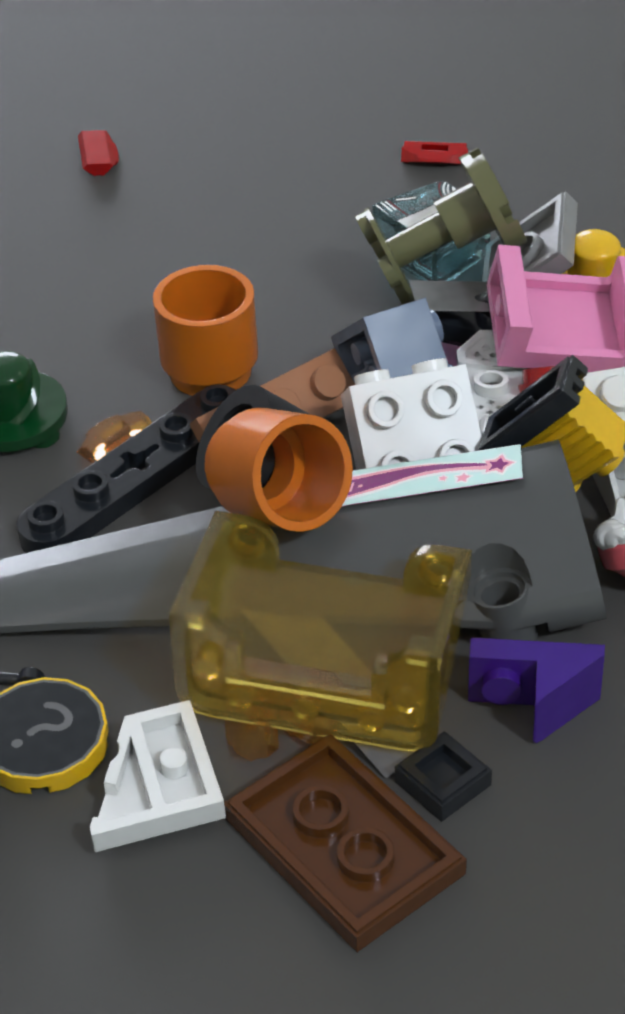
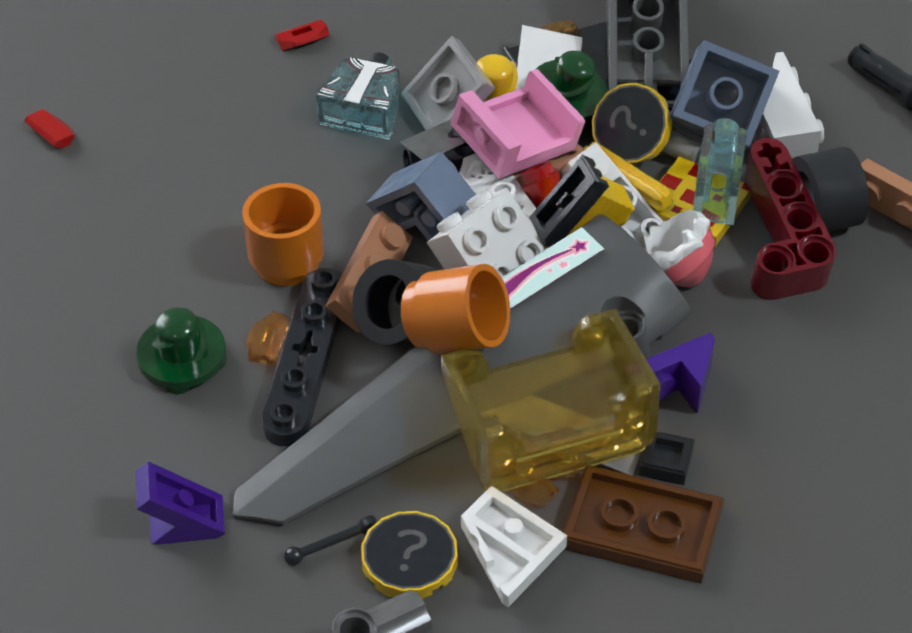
camera: 35 degrees left, 5 degrees up
(461, 217) = (408, 70): olive piece -> none

